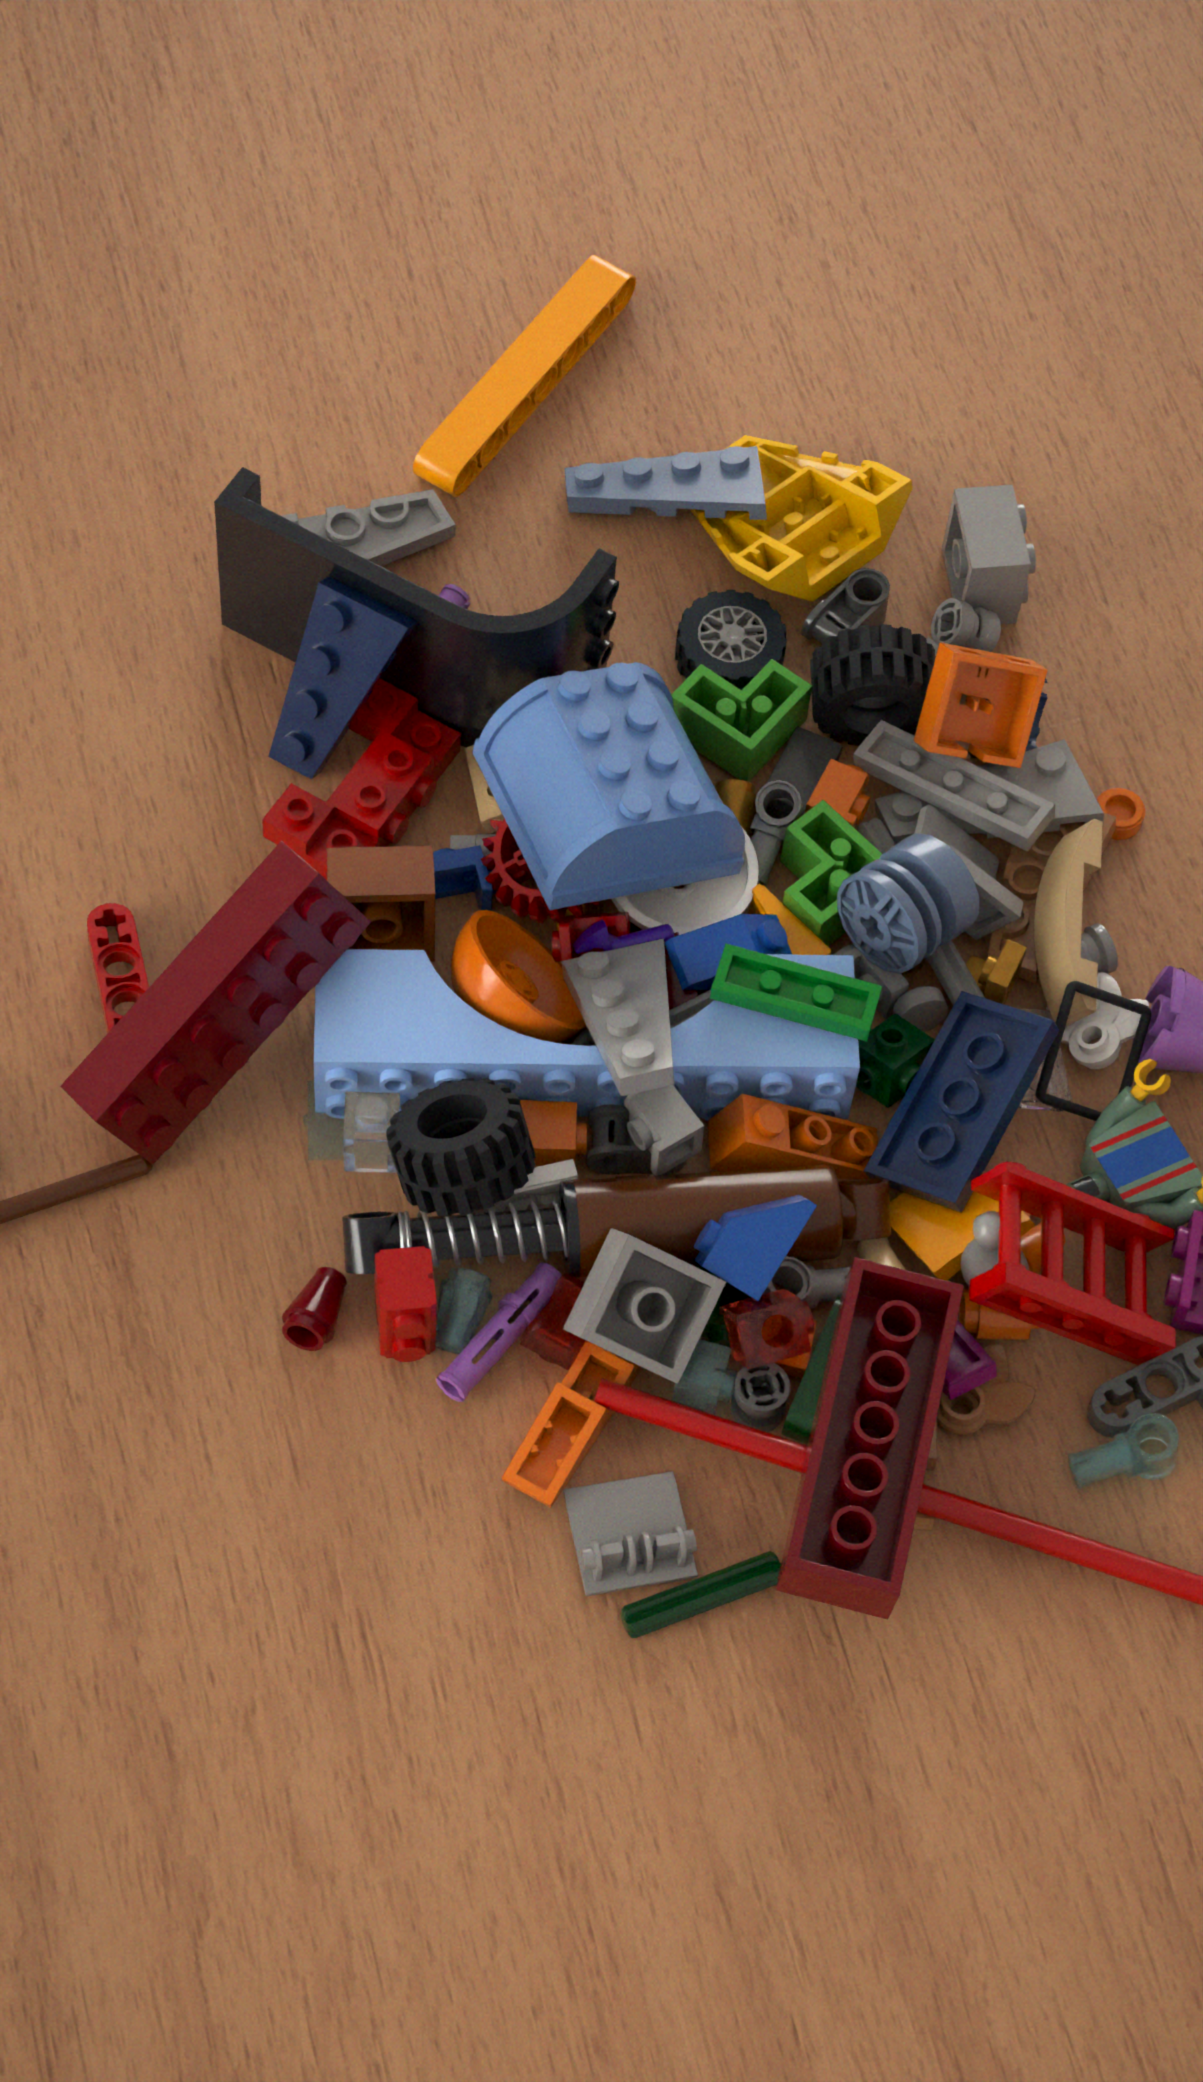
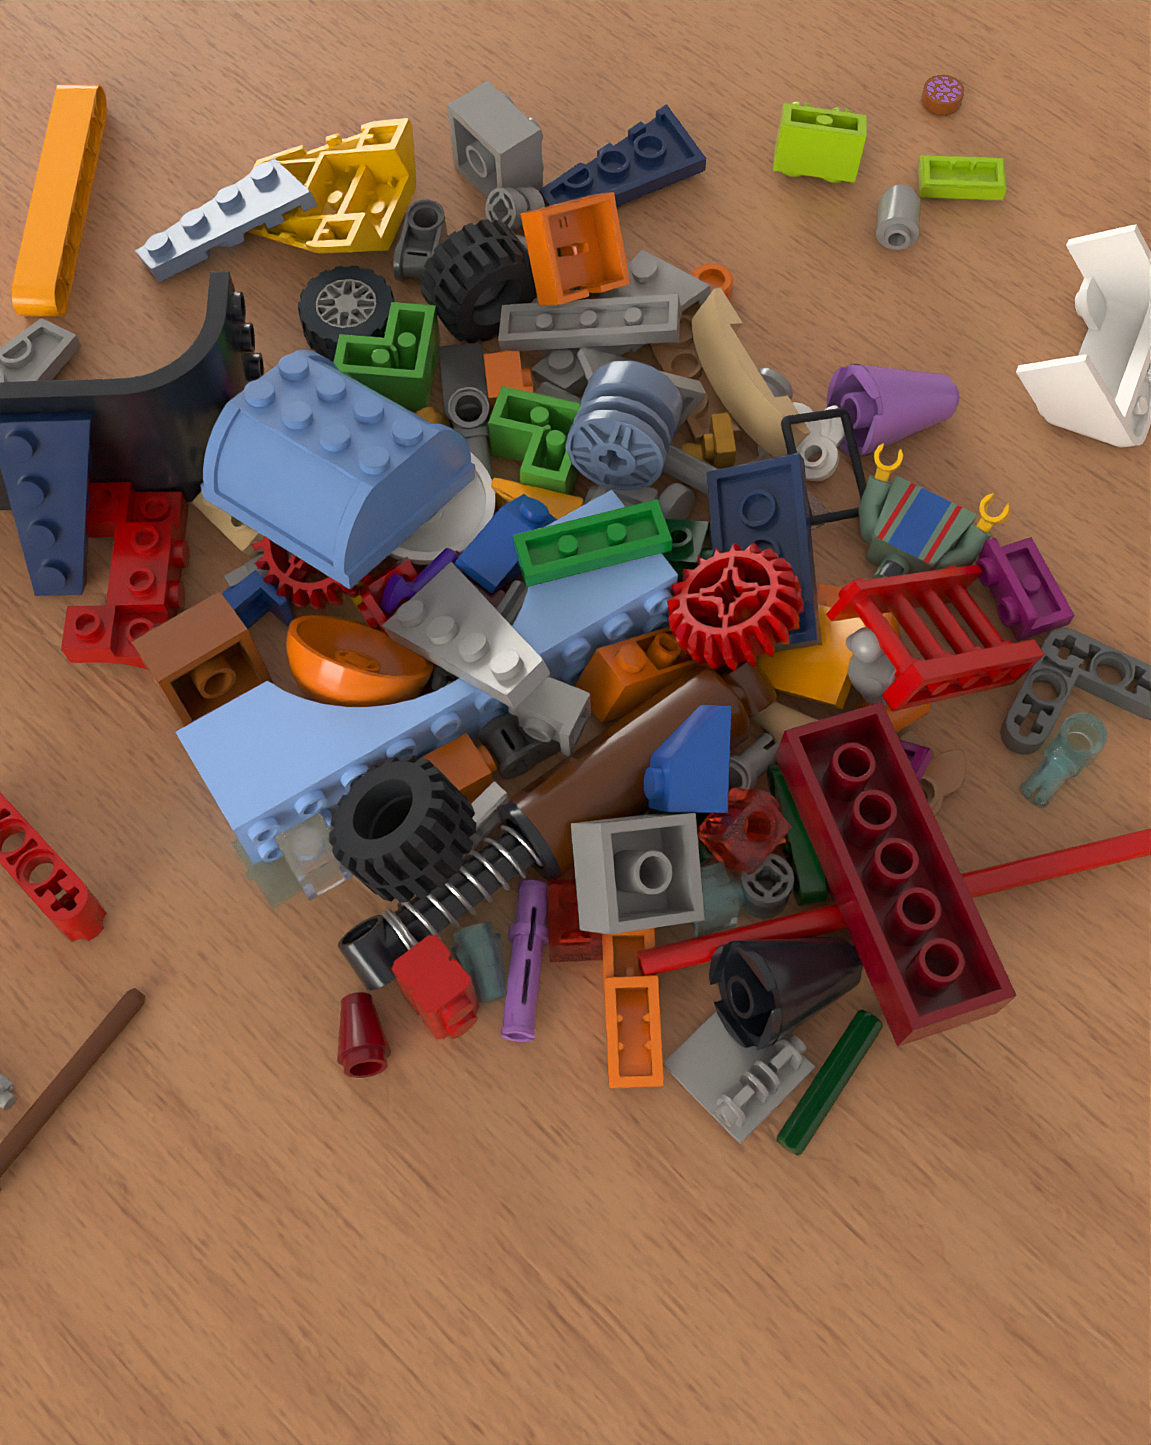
camera: 25 degrees left, 5 degrees up
(215, 1004) = (115, 832): dark red brick -> none
(713, 1480) = (779, 984): none -> black cone
(896, 1138) = (746, 600): none -> red gear
(1131, 648) = (637, 165): none -> dark blue wing

